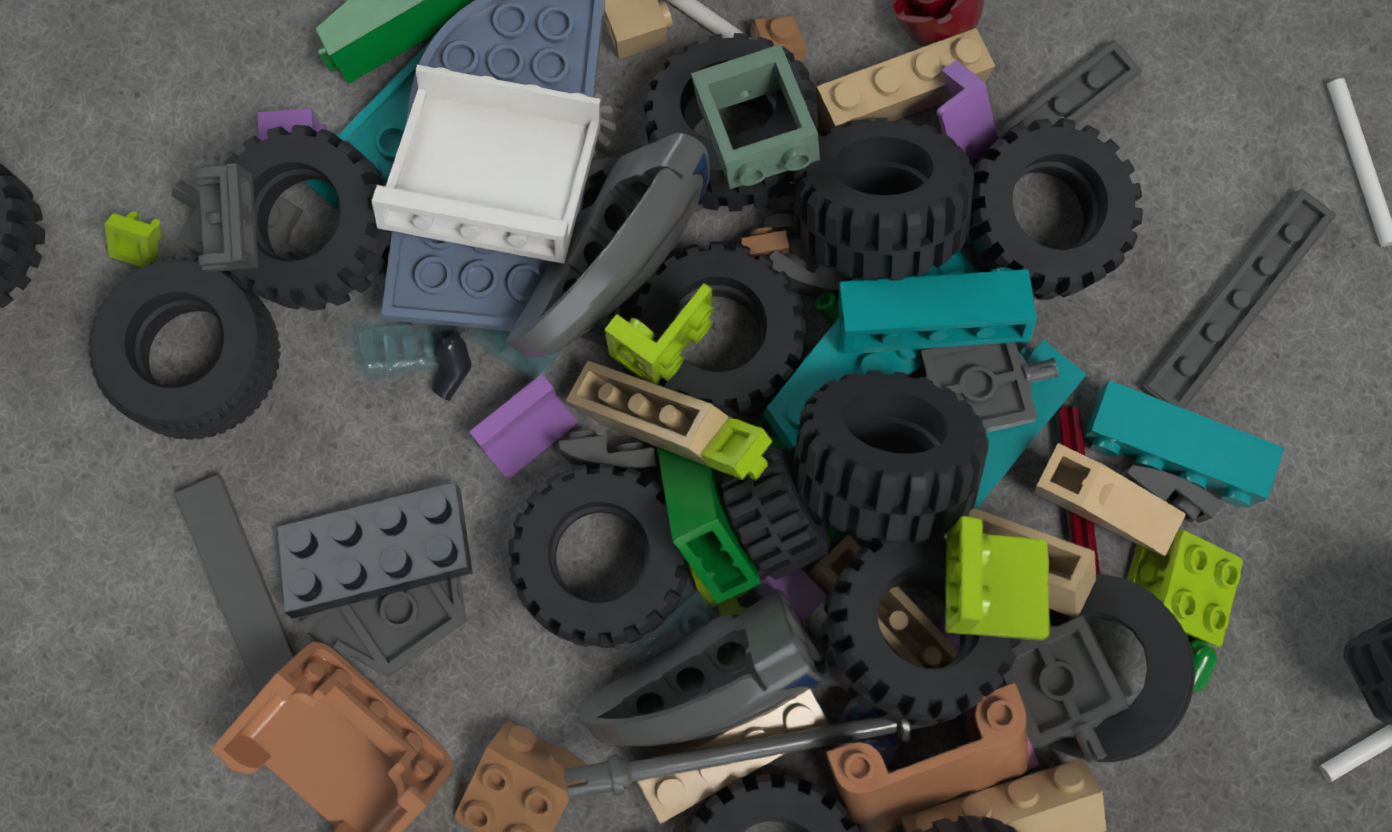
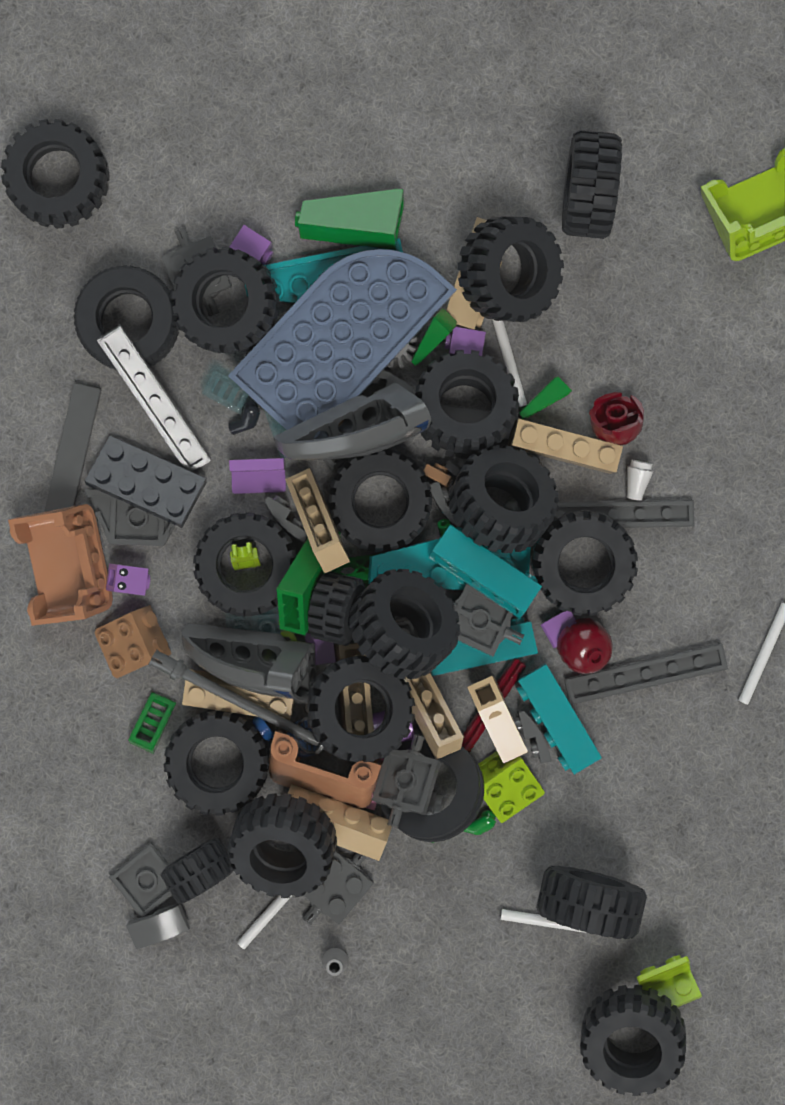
camera: 40 degrees right, 10 degrees up
(132, 239) = (140, 242): lime tile -> none
(227, 218) = (187, 282): dark grey hinge -> none
(298, 423) = (153, 398): none -> tile
(448, 705) = (127, 579): none -> medium lavender brick
(490, 164) = (330, 345): white panel -> none
(590, 547) = (244, 557): none -> lime plate
(621, 58) = (437, 331): none -> green slope
(634, 347) = (330, 487): lime bracket -> none
(660, 46) = (465, 340): none -> medium lavender brick
(738, 449) = (336, 570): lime tile -> none
(744, 80) = (477, 394): sand green window -> none
(781, 31) = (527, 374): medium nougat plate -> none
(798, 768) = (263, 728): none -> blue tile
(828, 40) = (549, 395): none -> green slope
(968, 112) = (579, 491): medium lavender panel -> none
(996, 583) = (403, 717): lime bracket -> none
(1024, 63) = (638, 477): none -> white cone
(1086, 322) = (555, 625): none -> medium lavender slope
(1139, 320) = (585, 646): none -> dark red cylinder

